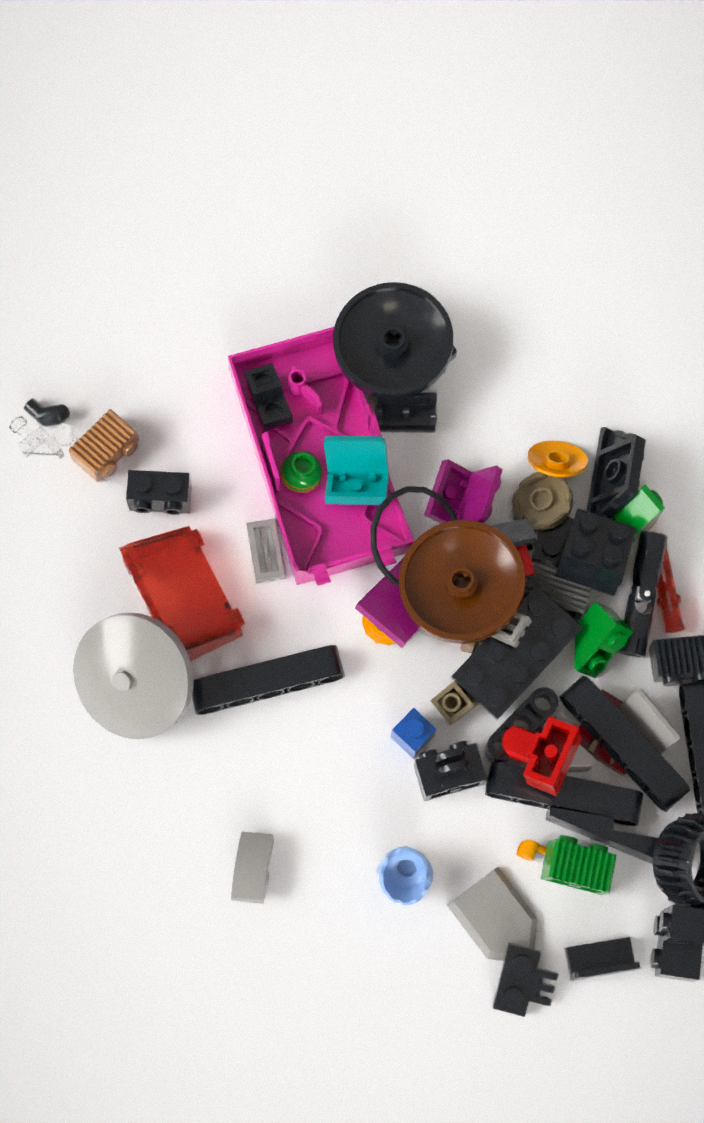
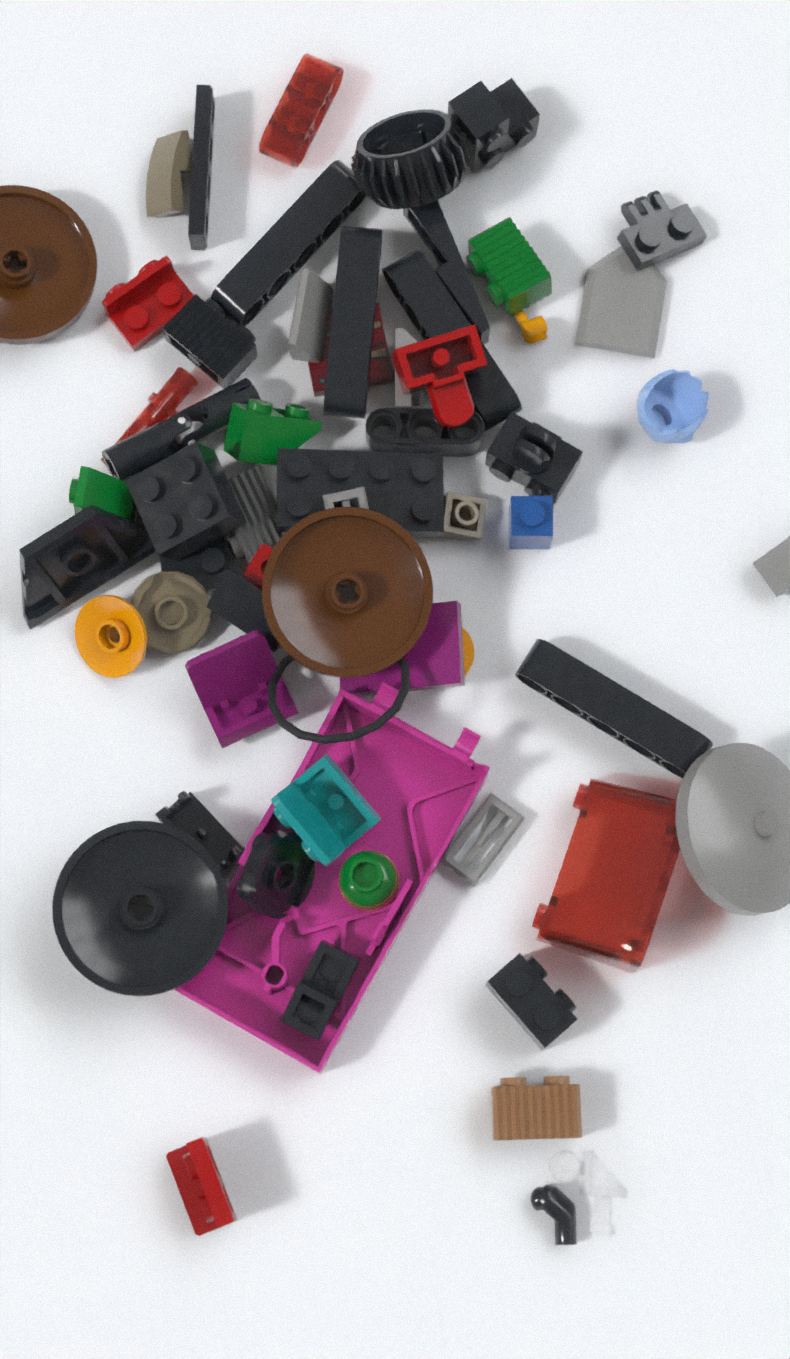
camera: 130 degrees left, 5 degrees up
(228, 264) = (201, 1186): none -> red bracket
(348, 406) = (259, 881): none -> black plate
(600, 959) = (572, 179): black panel -> none

